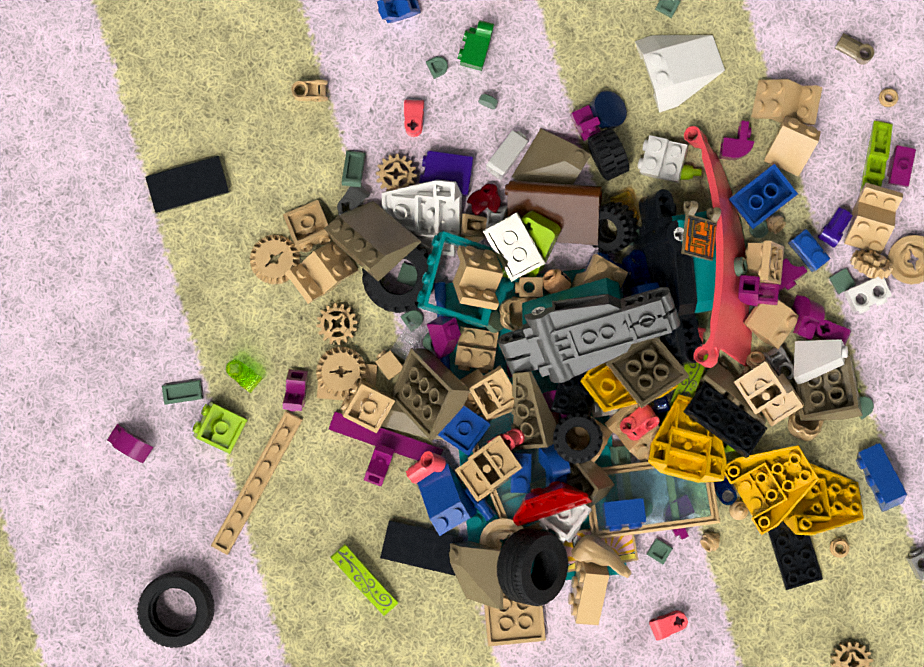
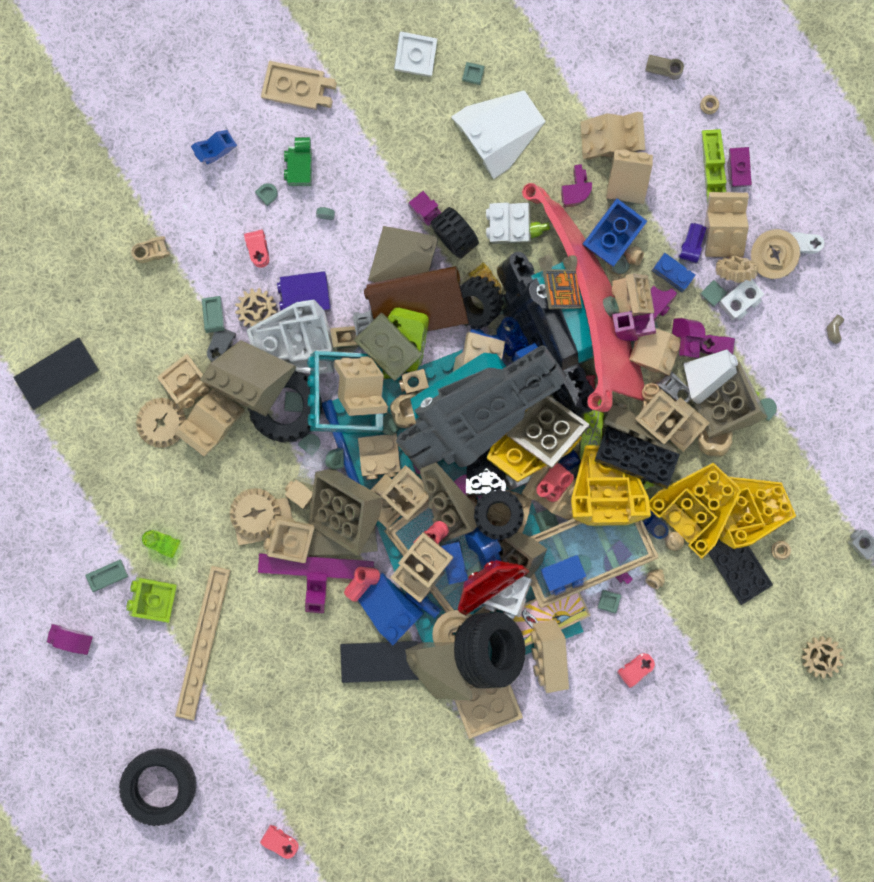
camera: 15 degrees left, 0 degrees up
(295, 390) = (215, 543): magenta brick -> none
(330, 331) = (234, 477): tan gear -> none
(364, 579) = (332, 708): lime slope -> none
(444, 335) = (344, 450): magenta slope -> none
(465, 430) = (389, 536): blue tile -> none
(483, 199) = (346, 309): dark red plate -> none
(506, 154) = (357, 260): white slope -> none
(556, 281) = (437, 368): light nougat head -> none
(595, 550) = (545, 617): tan hair -> none
(609, 109) = (443, 189): dark blue tile -> none
(881, 477) = (802, 471): blue wedge -> none

